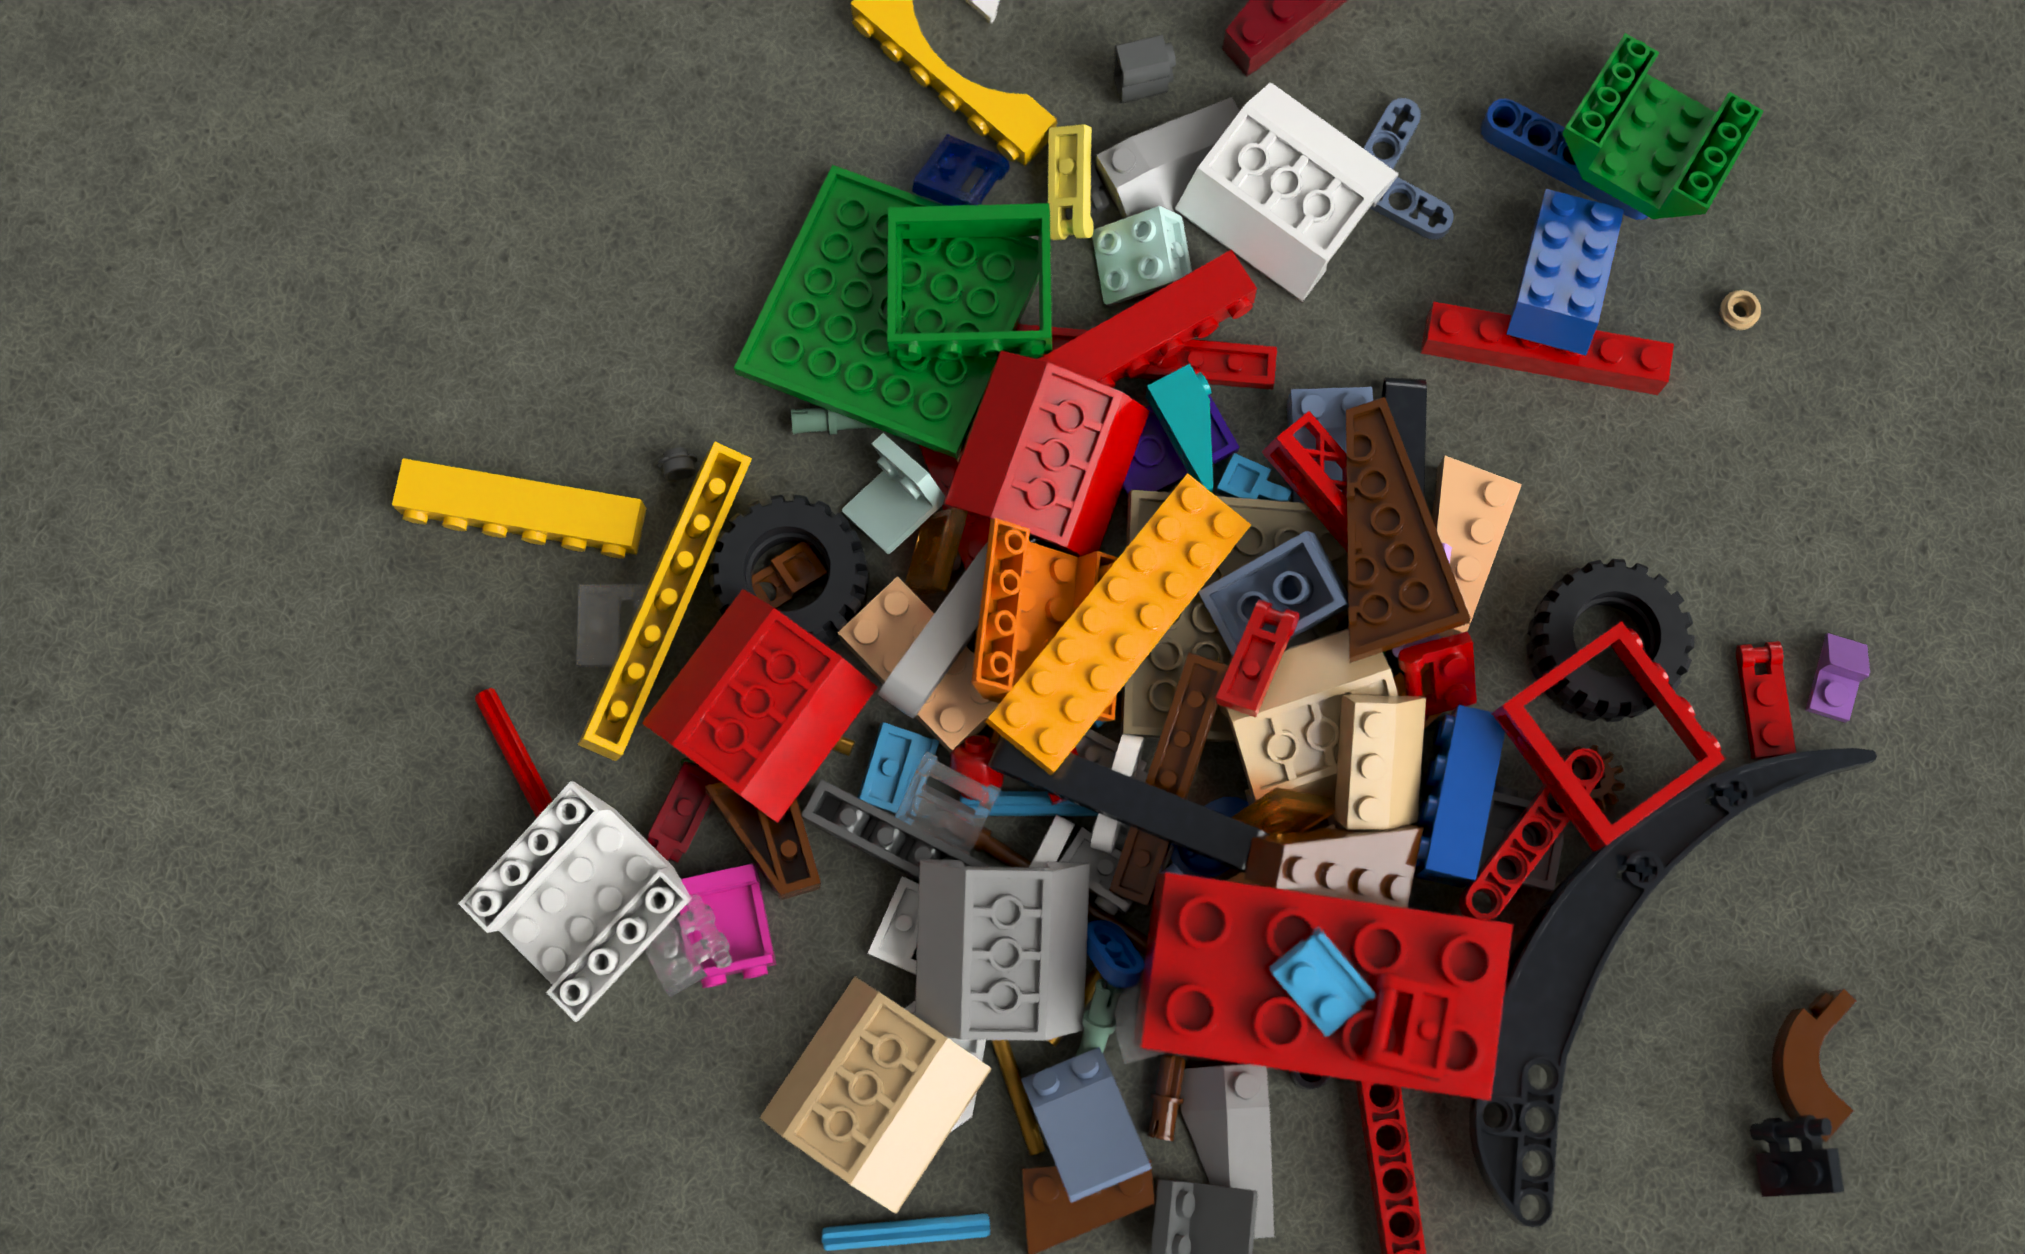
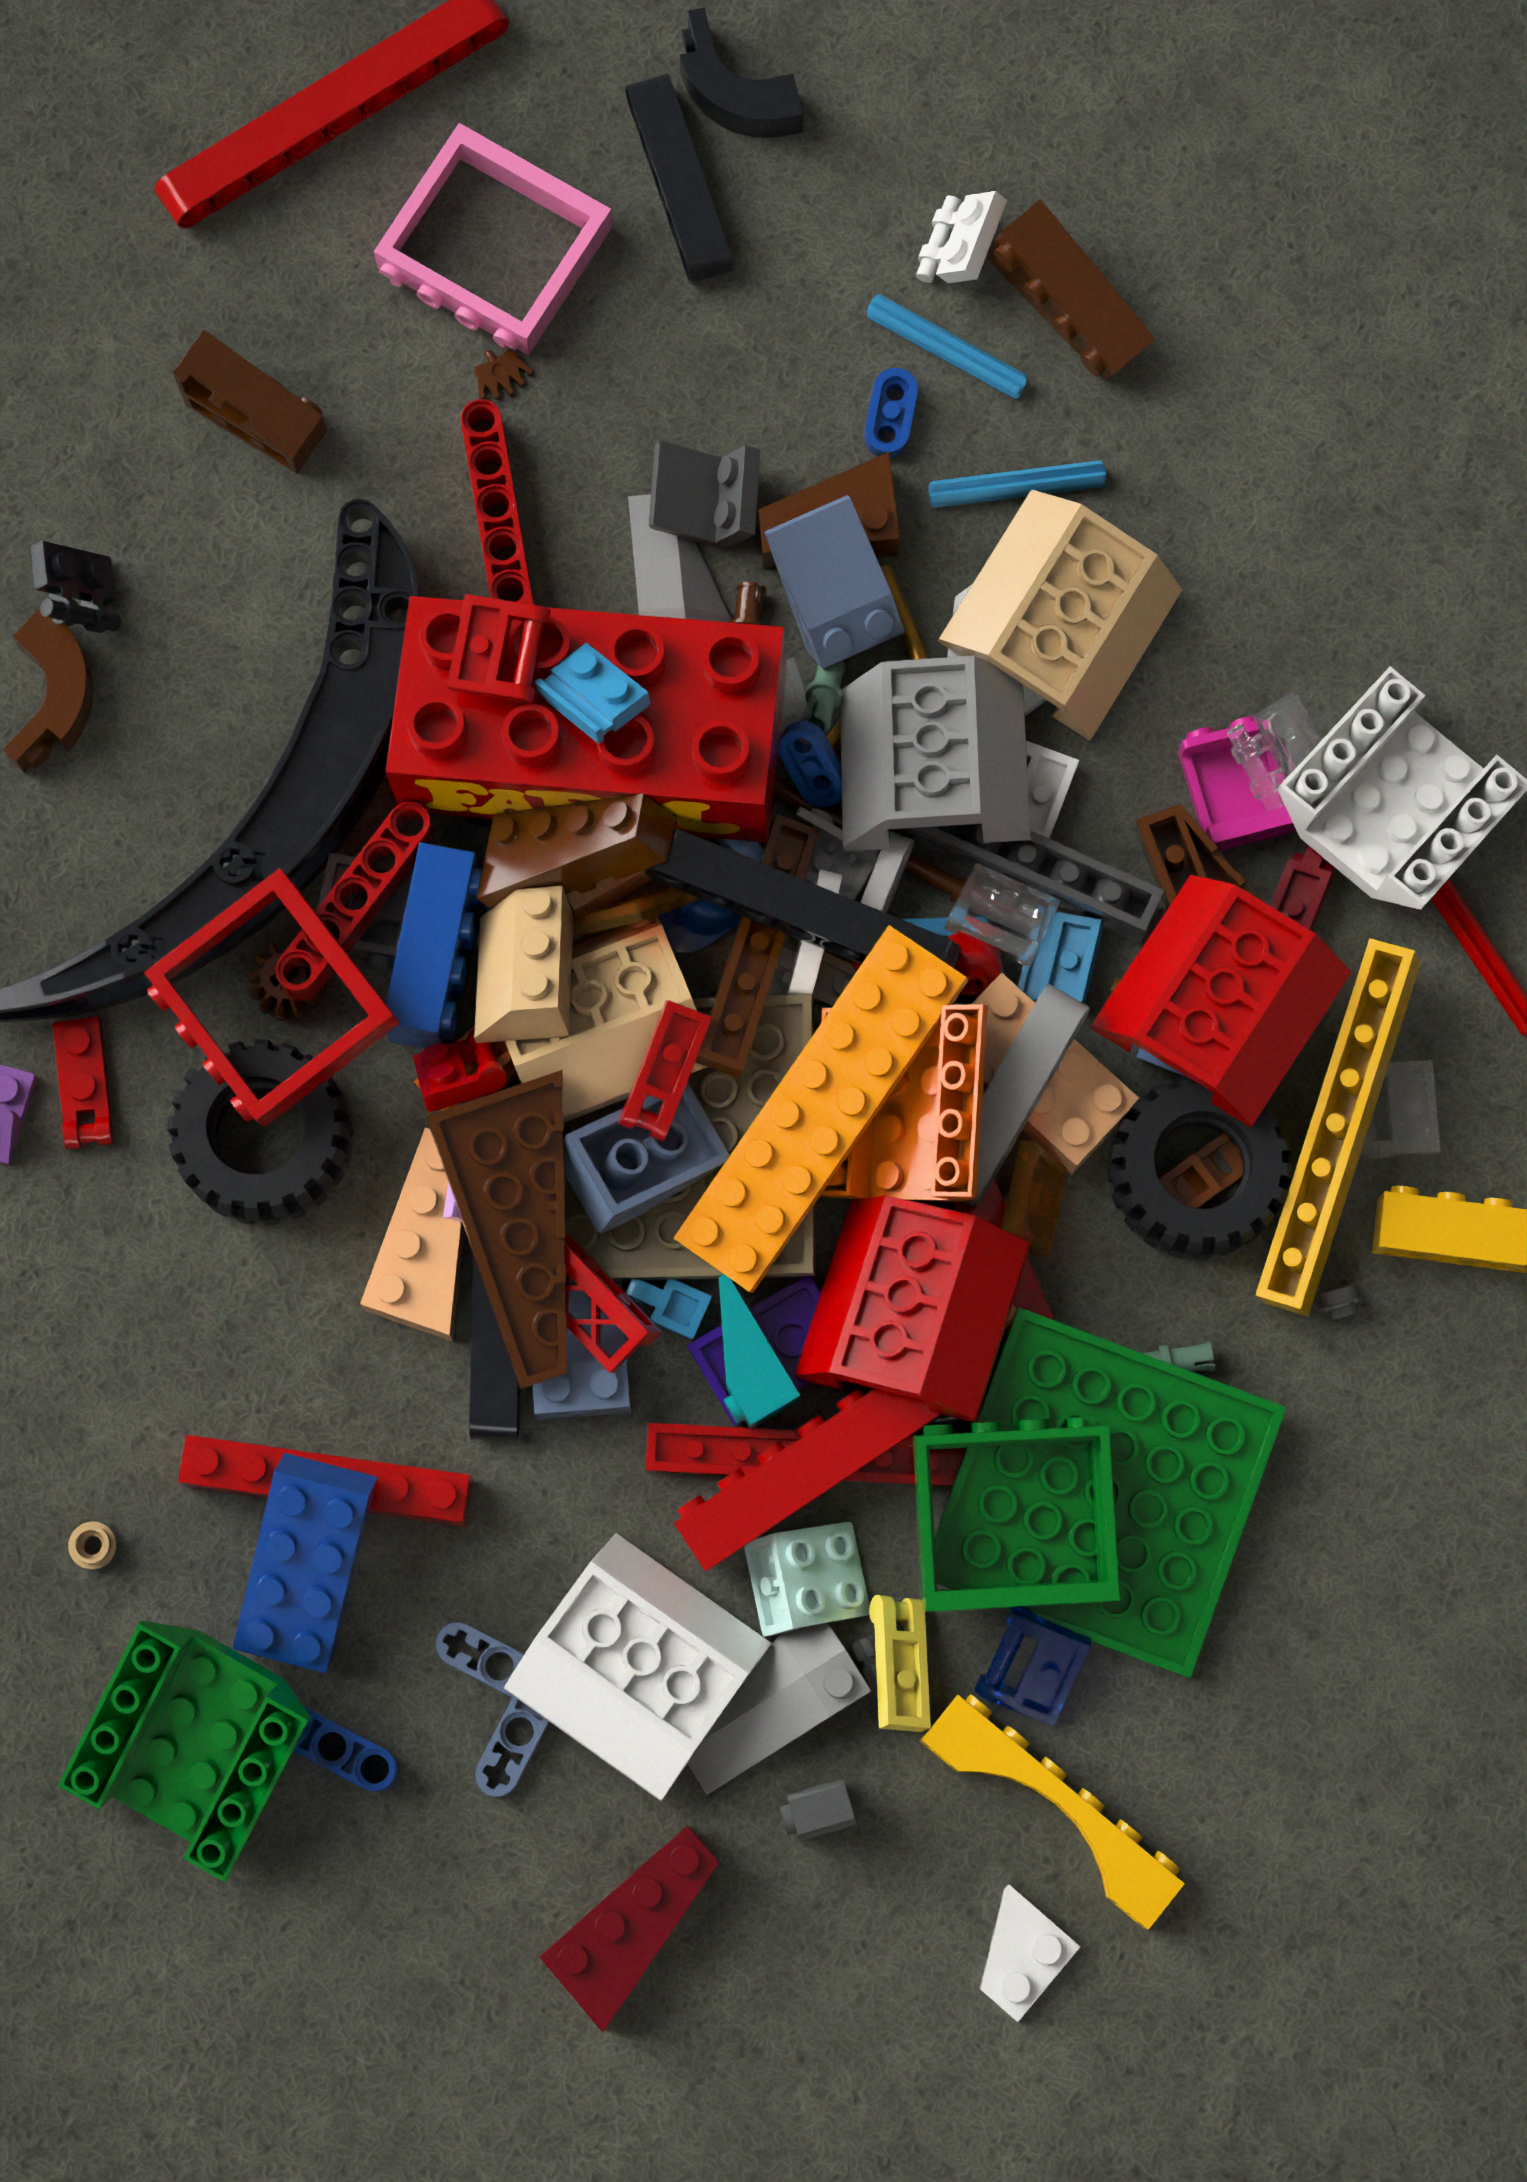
camera: 175 degrees right, 0 degrees up
(896, 499) = (1086, 1262): light aqua bracket -> none

